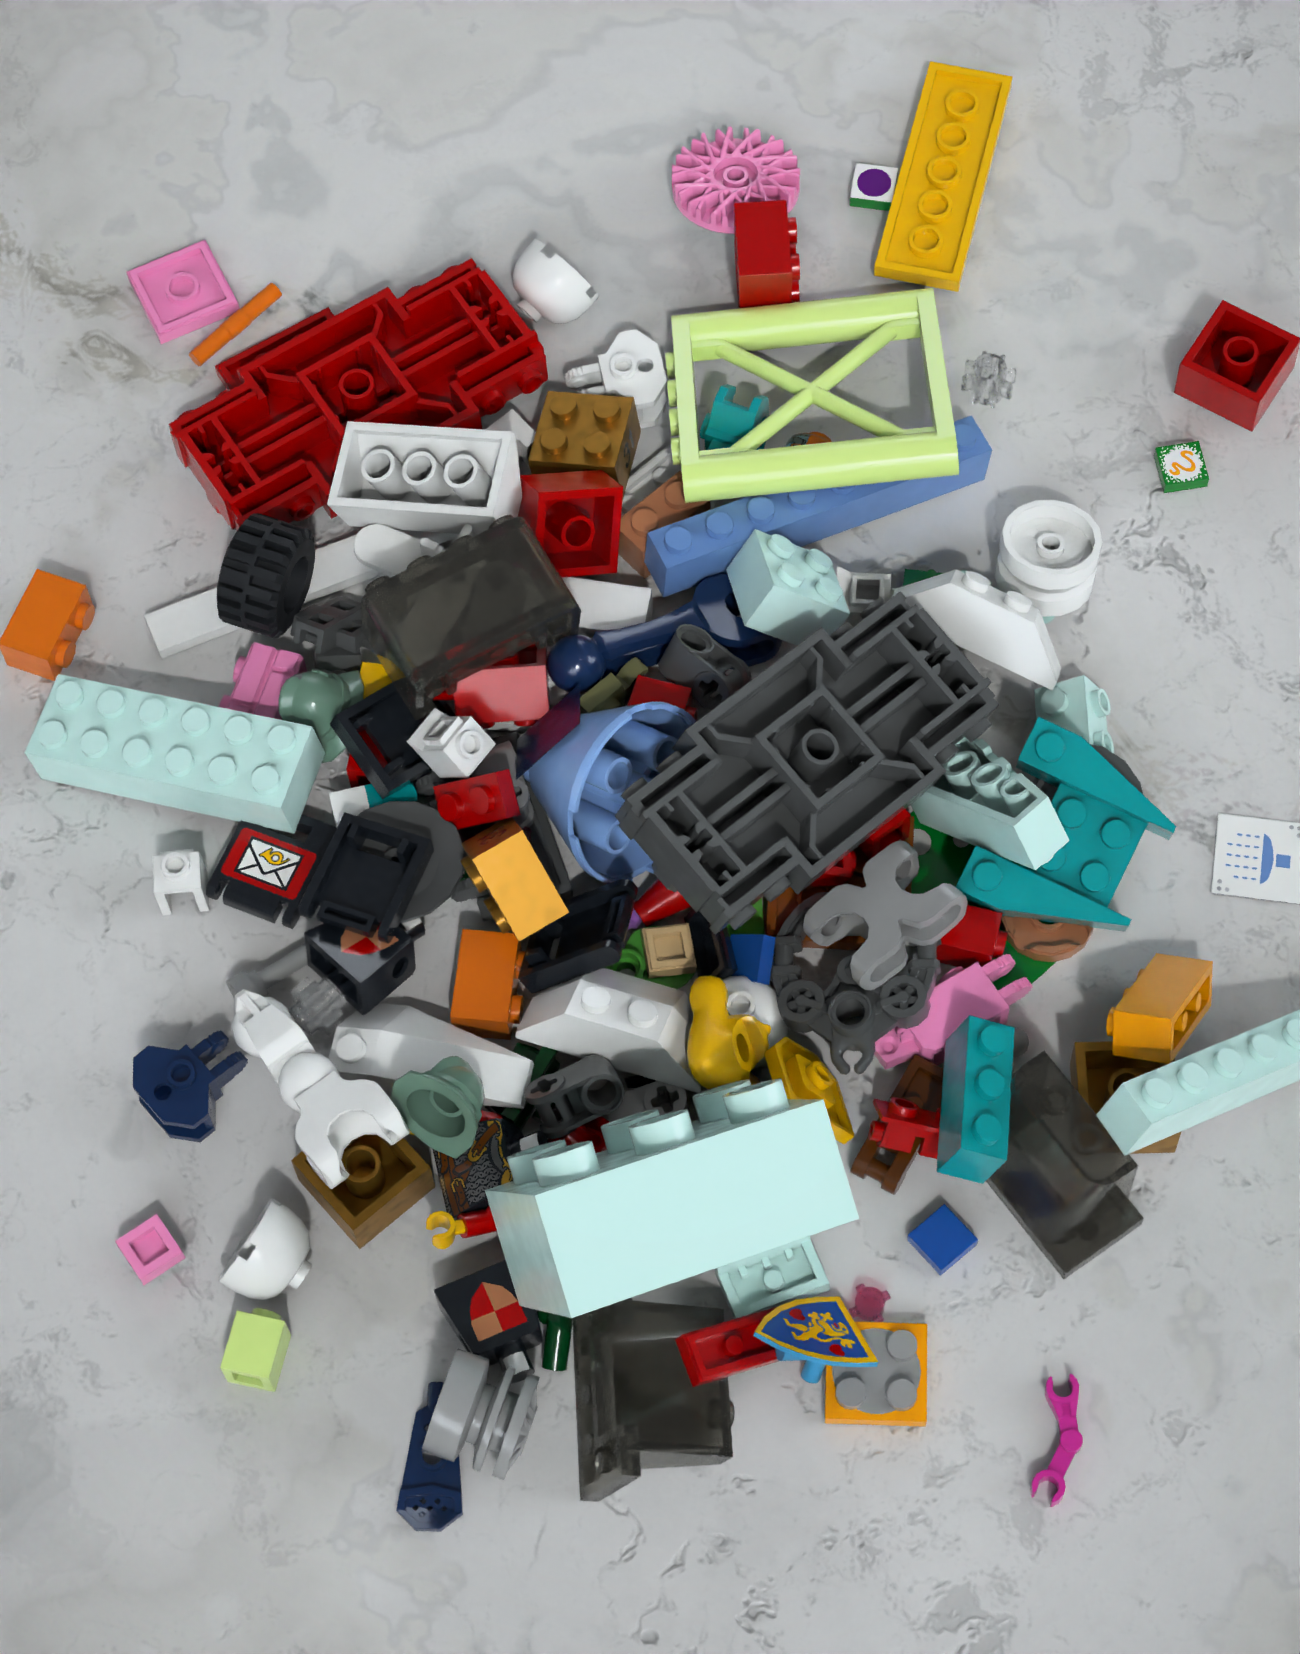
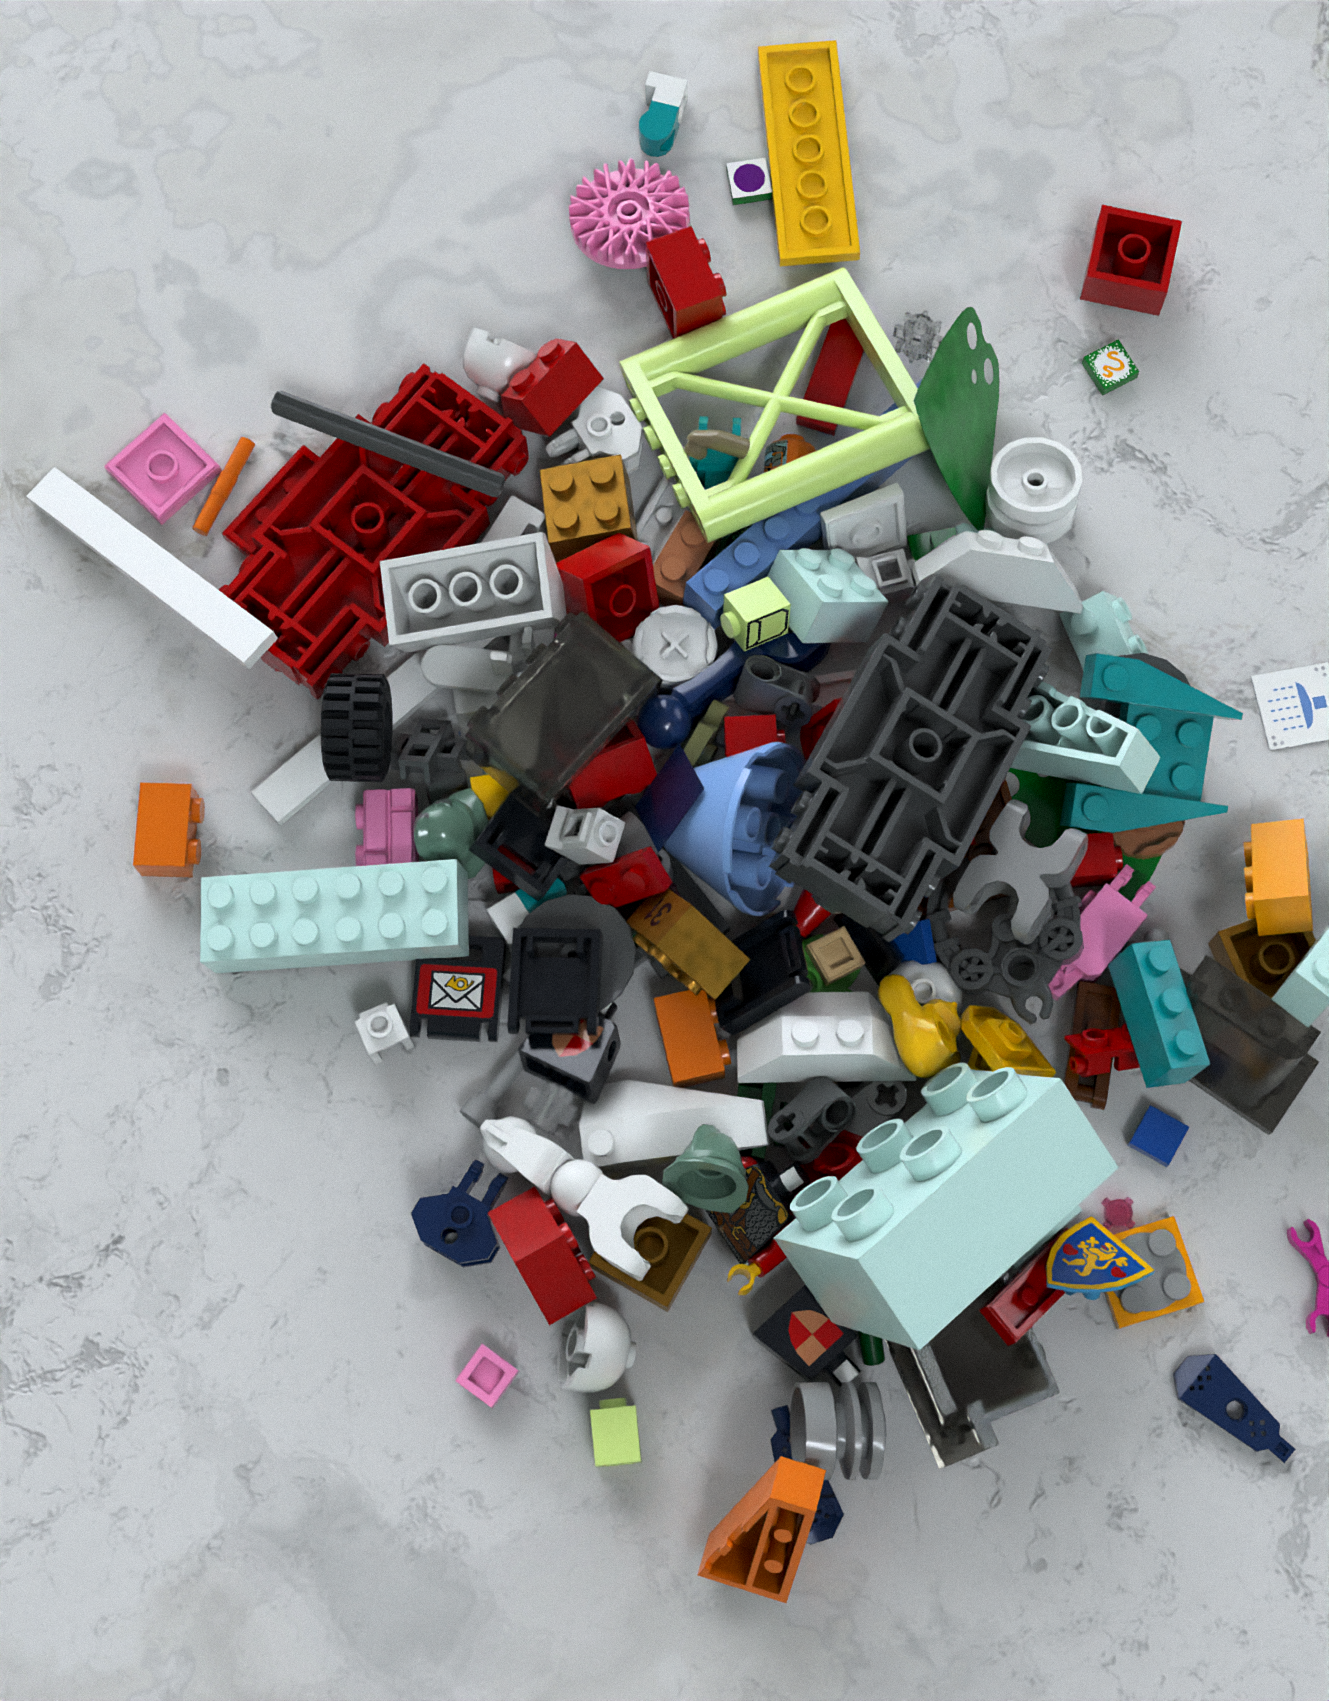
camera: 20 degrees left, 10 degrees up
(130, 373) = (152, 568): none -> white tile
(249, 1138) = (545, 1253): none -> red brick
(371, 1491) = (766, 1531): none -> orange wedge
(403, 319) = (388, 443): none -> dark grey axle
(587, 315) = (550, 387): none -> red slope
(617, 593) = (675, 644): none -> white tile
(706, 584) = (755, 614): none -> yellowish green brick
(730, 405) = (716, 440): none -> dark tan arm
(811, 100) = (661, 122): none -> leg
(861, 536) = (867, 524): none -> white tile
(890, 389) = (833, 373): none -> red tile
(910, 1521) = (1218, 1393): none -> dark blue piece
(987, 459) = (961, 414): none -> green piece

